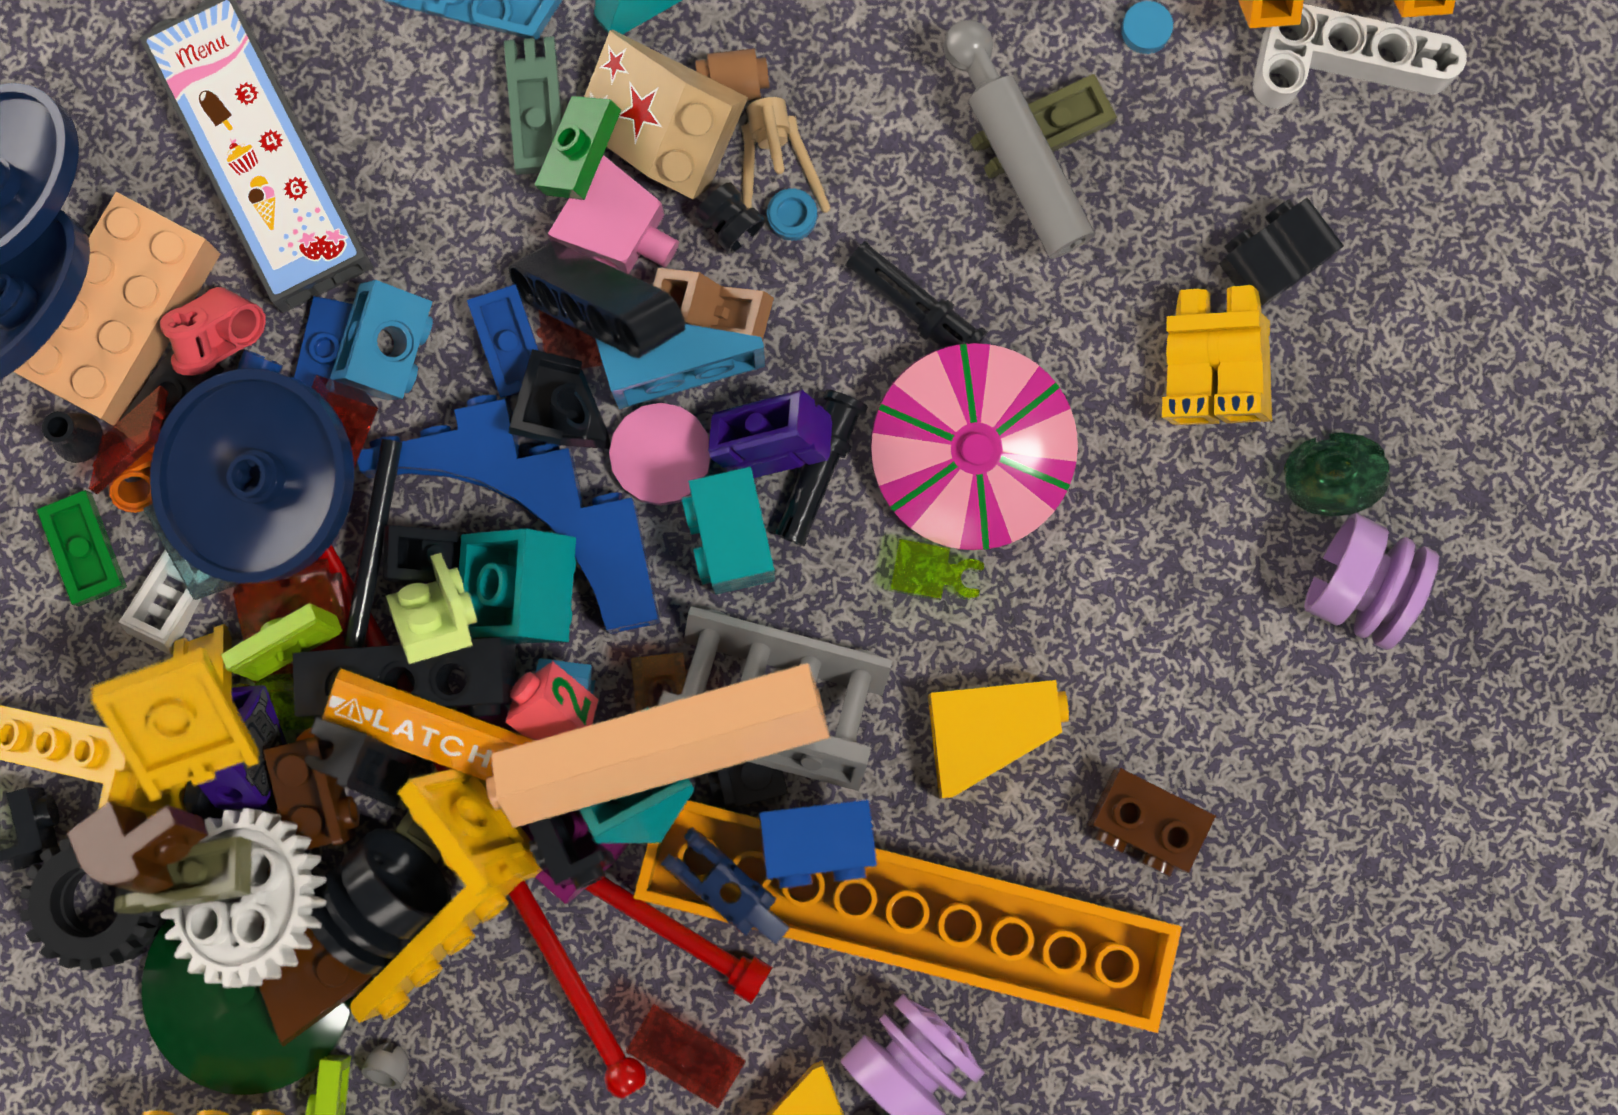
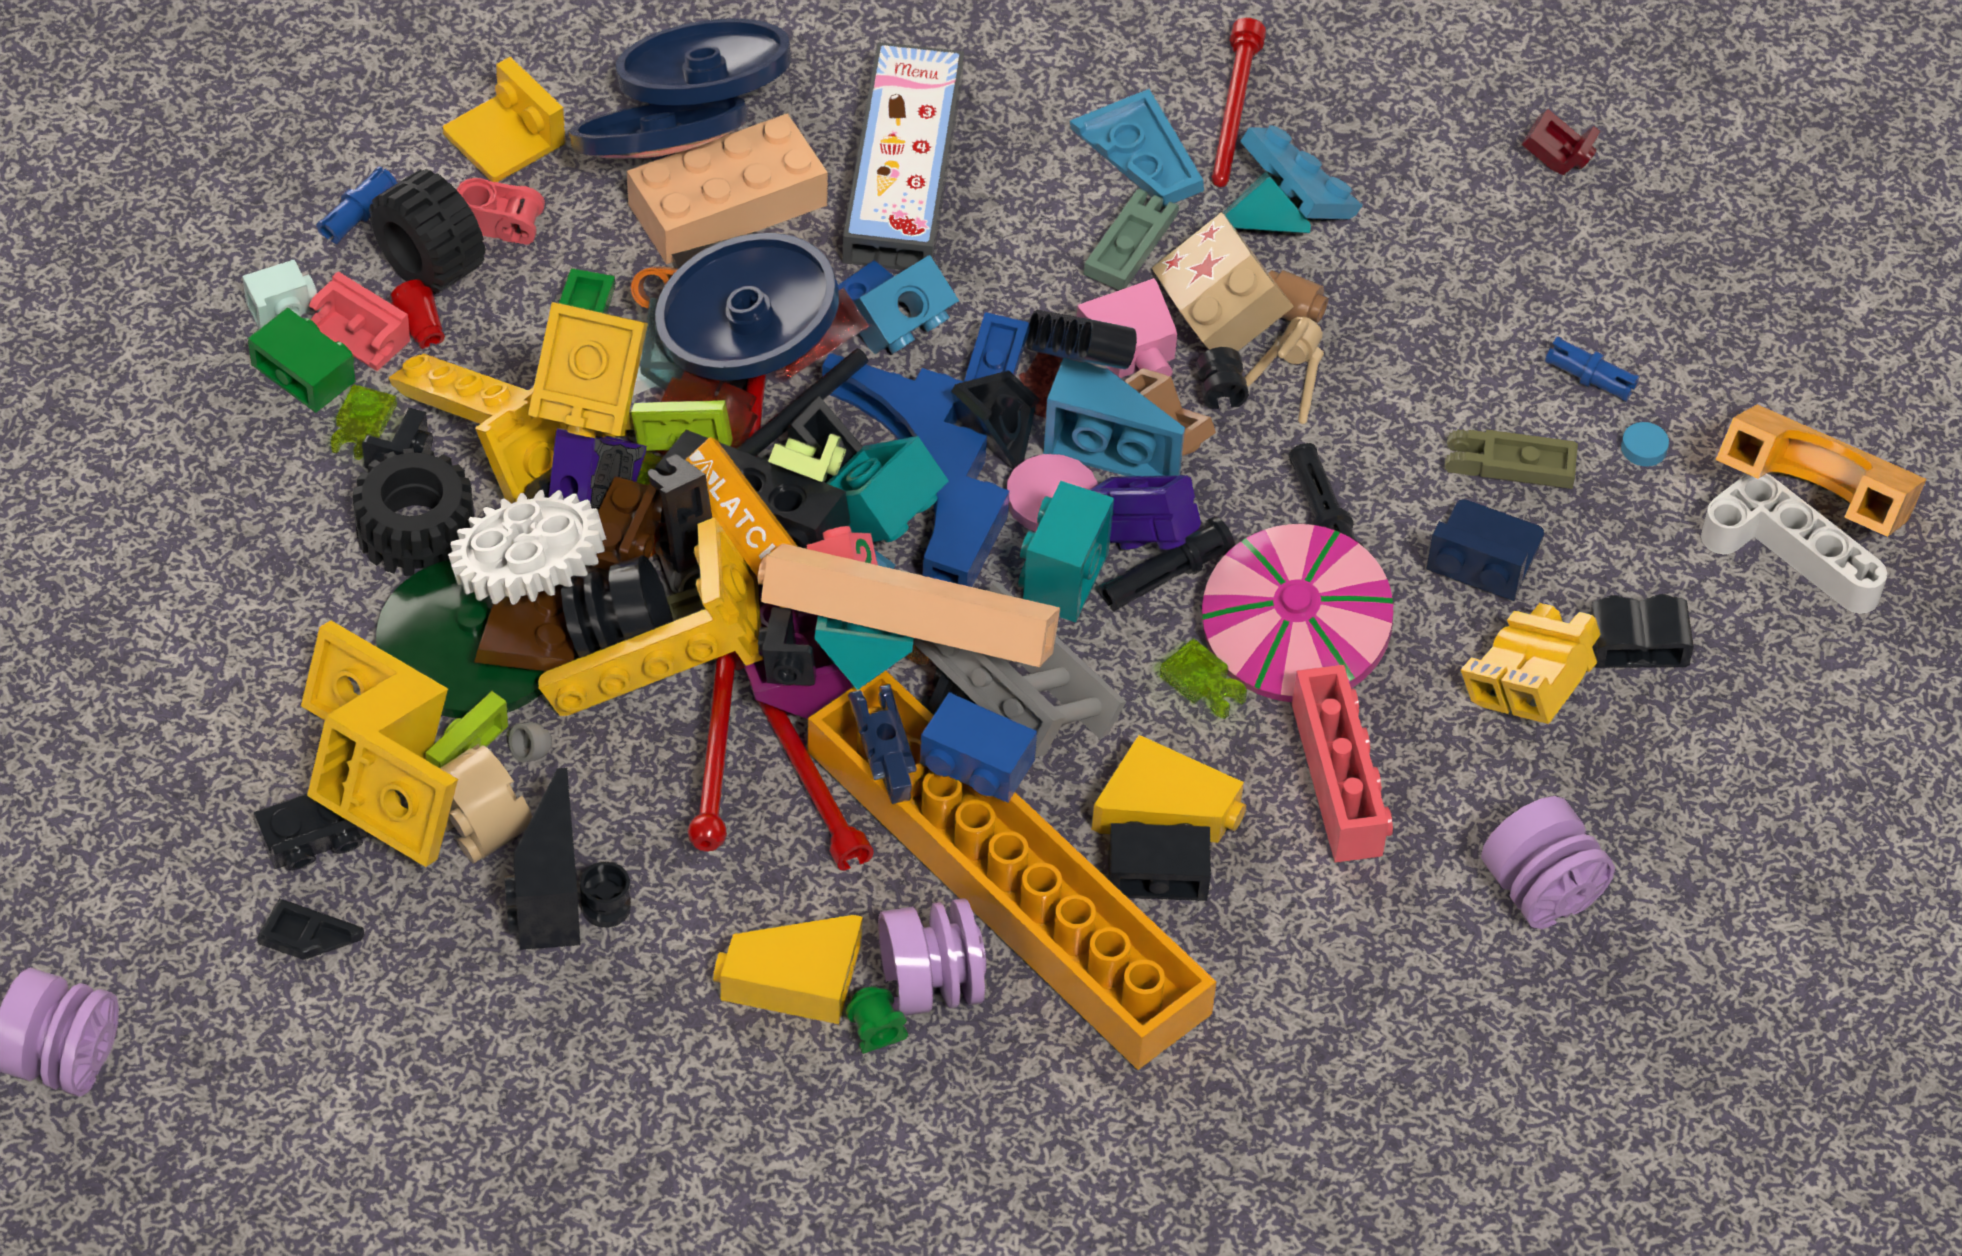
camera: 35 degrees right, 30 degrees down
(73, 435) = (633, 240): black cone -> none
(128, 440) = (670, 255): clear red piece -> none
(132, 851) = (484, 455): brick -> none
(205, 875) = (501, 498): olive hinge -> none
(211, 327) = (776, 217): coral piece -> none
(578, 147) = (1141, 267): plate -> none
(685, 1055) = (763, 853): clear red brick -> none
(792, 214) = (1272, 408): dark azure tile -> none
(1019, 143) = (1480, 441): light grey piece -> none
(1029, 803) = (1160, 861): none -> black brick
(1101, 265) = (1484, 548): none -> dark blue bracket
(1121, 593) = (1341, 764): none -> coral brick
(1150, 821) = (1247, 927): reddish brown brick -> none
(1337, 474) = (1577, 788): clear green tile -> none

